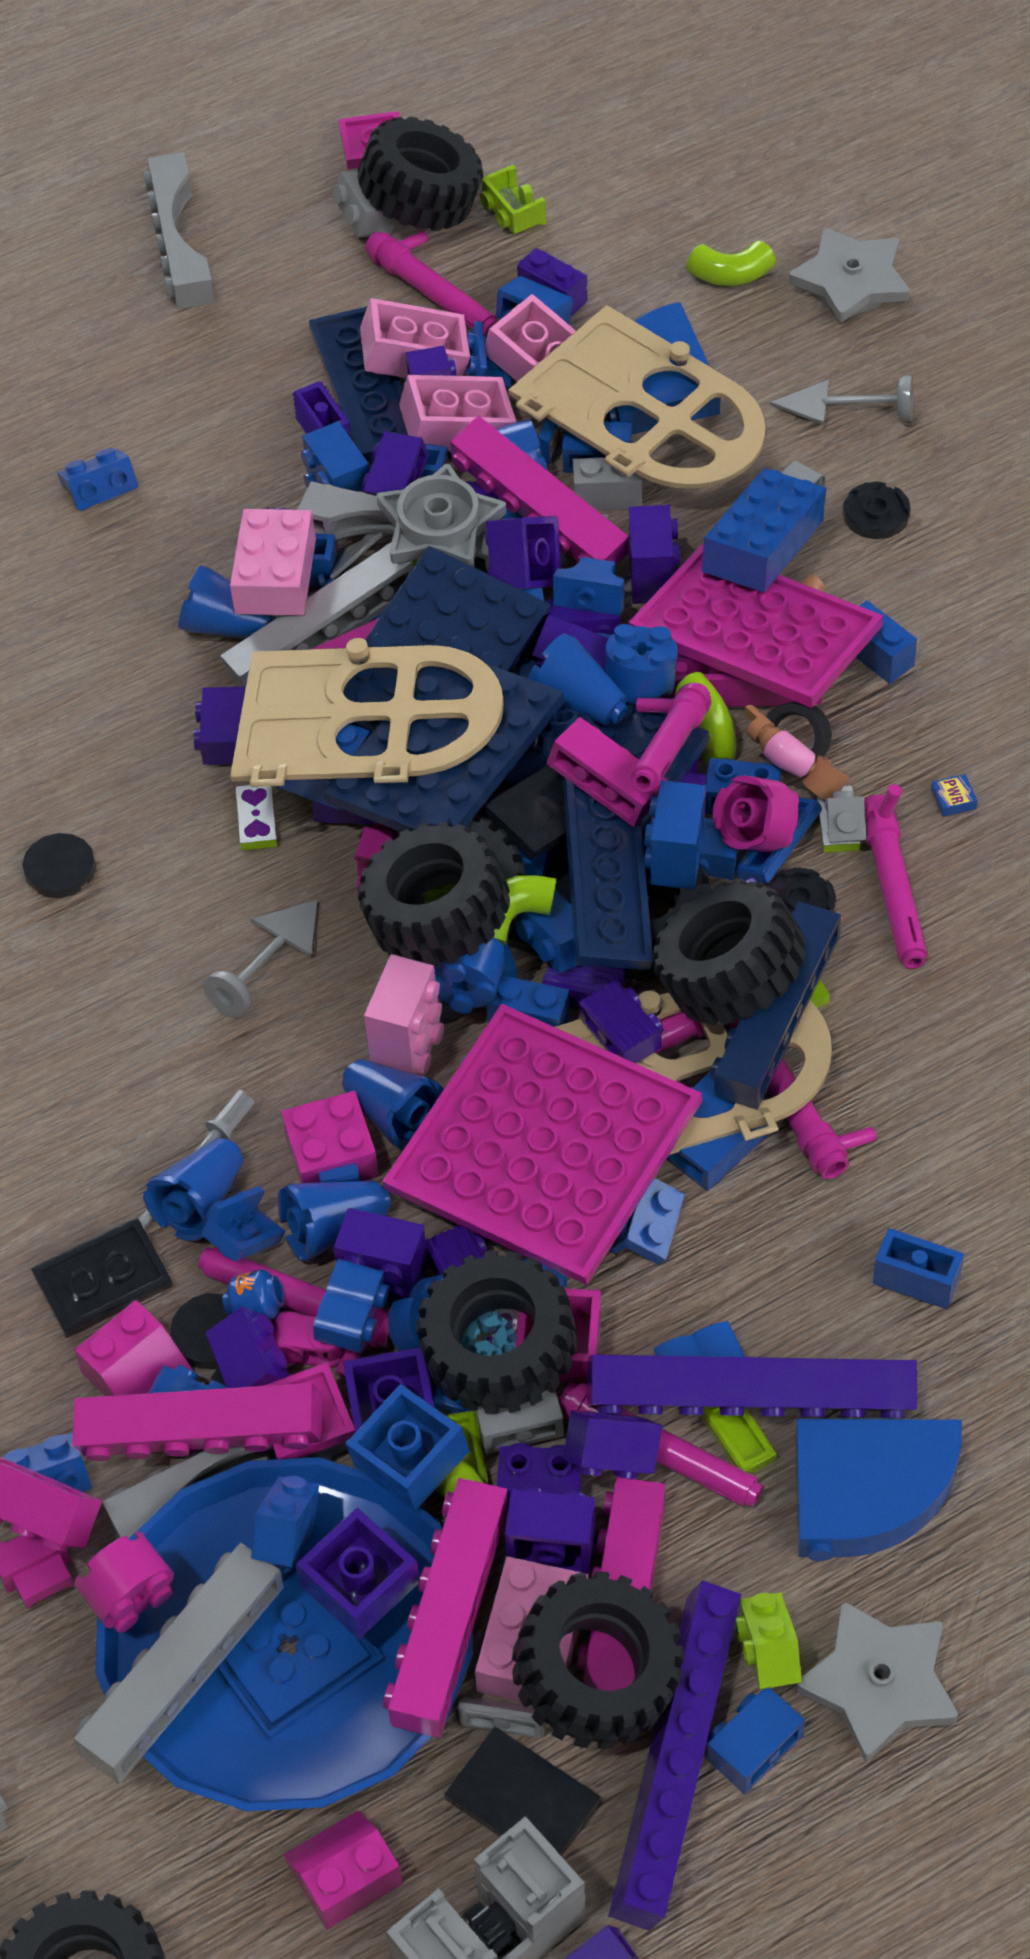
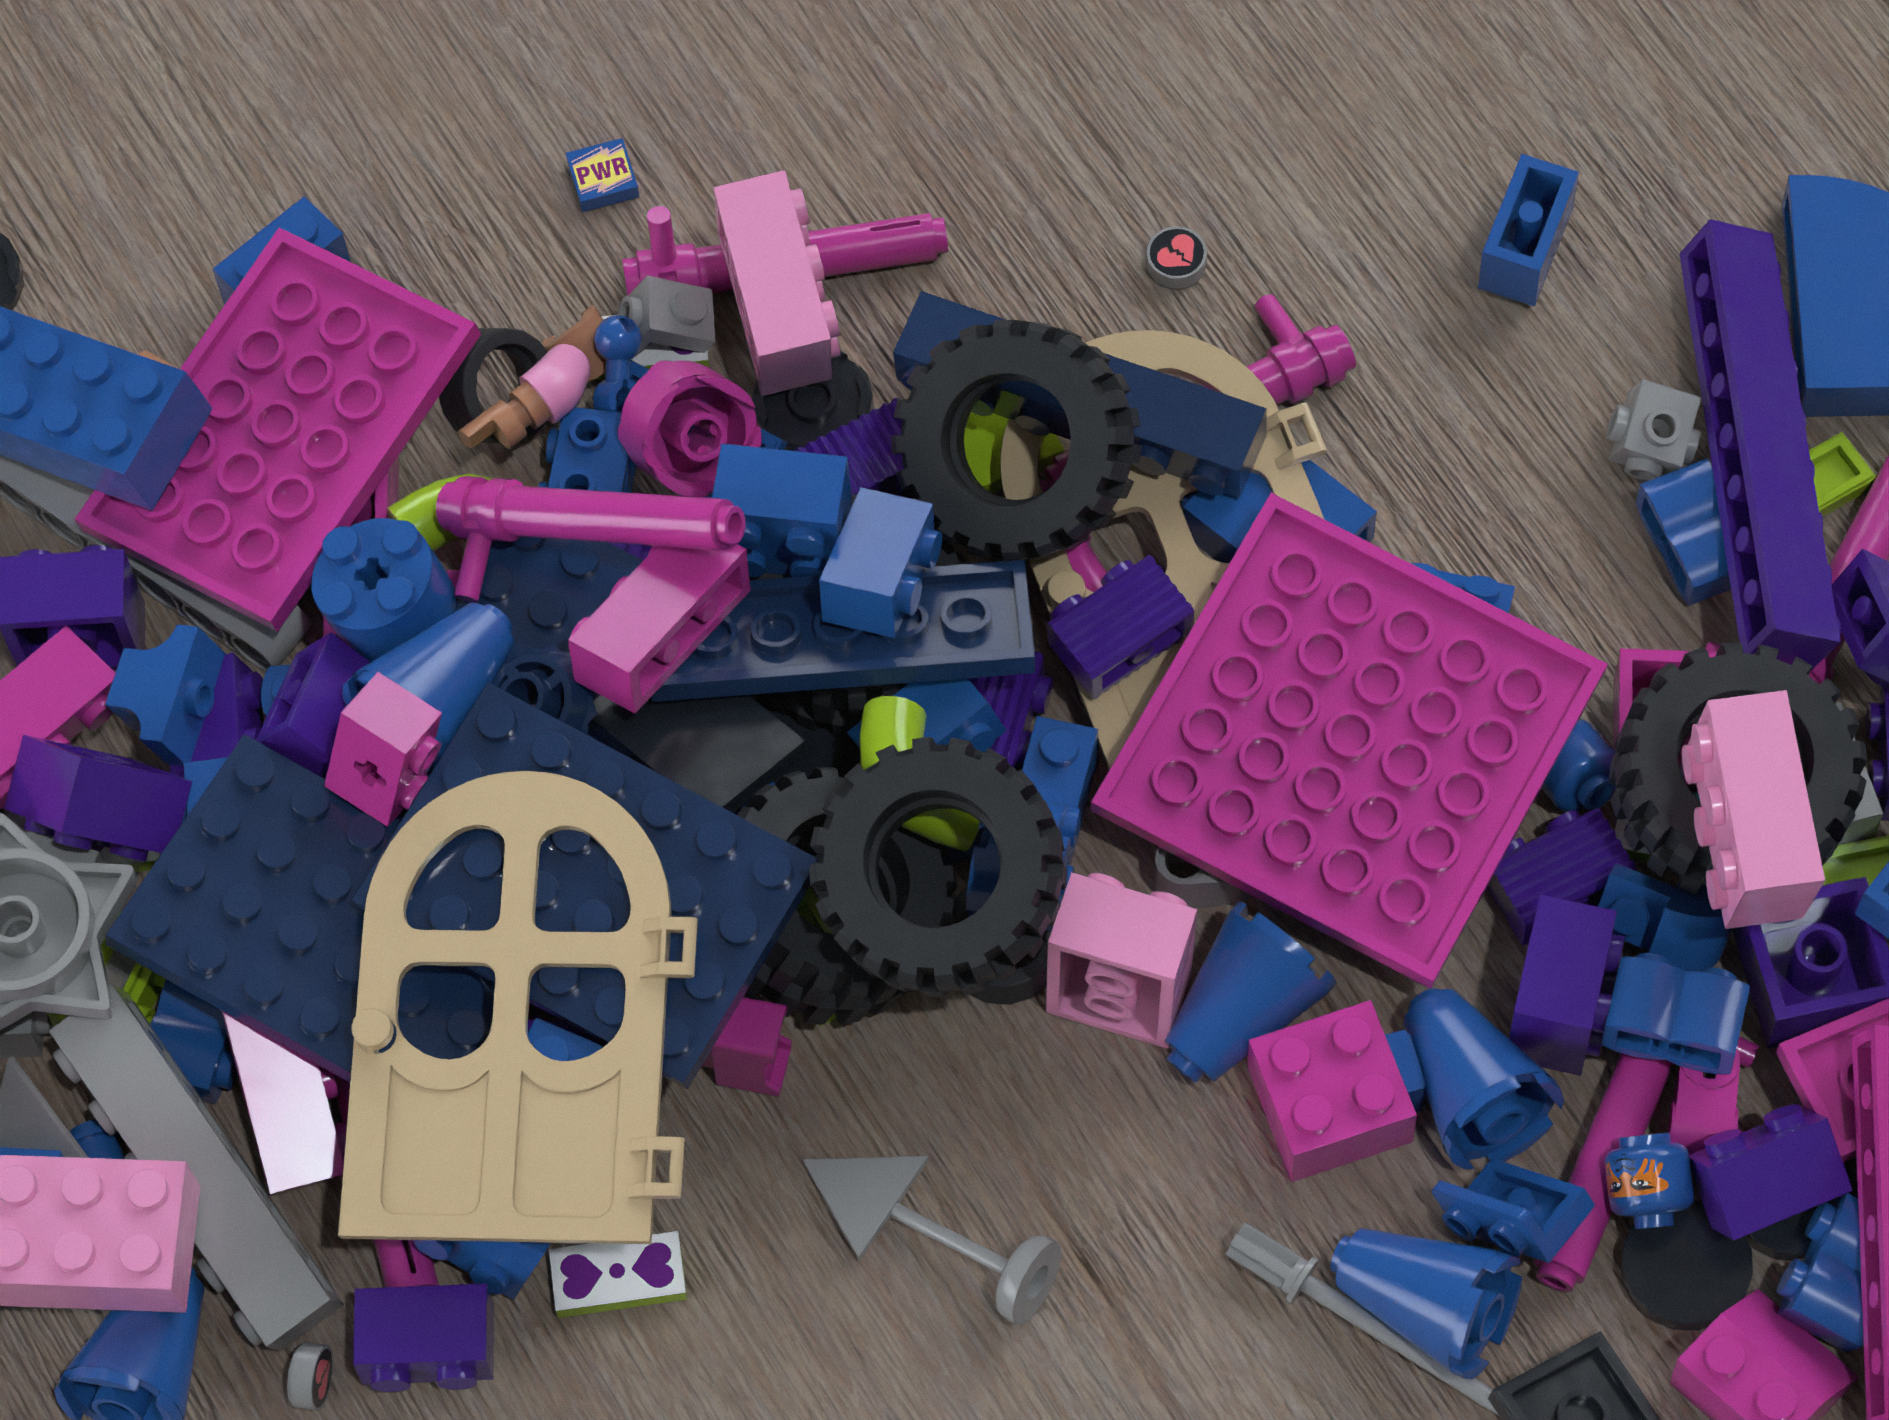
camera: 90 degrees left, 10 degrees up
(207, 678) = (310, 1376): none -> light grey tile
(435, 1295) = (1753, 810): none -> bright pink brick
(525, 644) = (383, 749): none -> dark pink brick
(642, 878) = (879, 563): none -> brick
(769, 1332) = (1654, 430): none -> light grey brick
(815, 785) = (616, 341): none -> blue arm
(854, 851) = (777, 282): none -> bright pink brick
(903, 1086) = (1176, 257): none -> tile

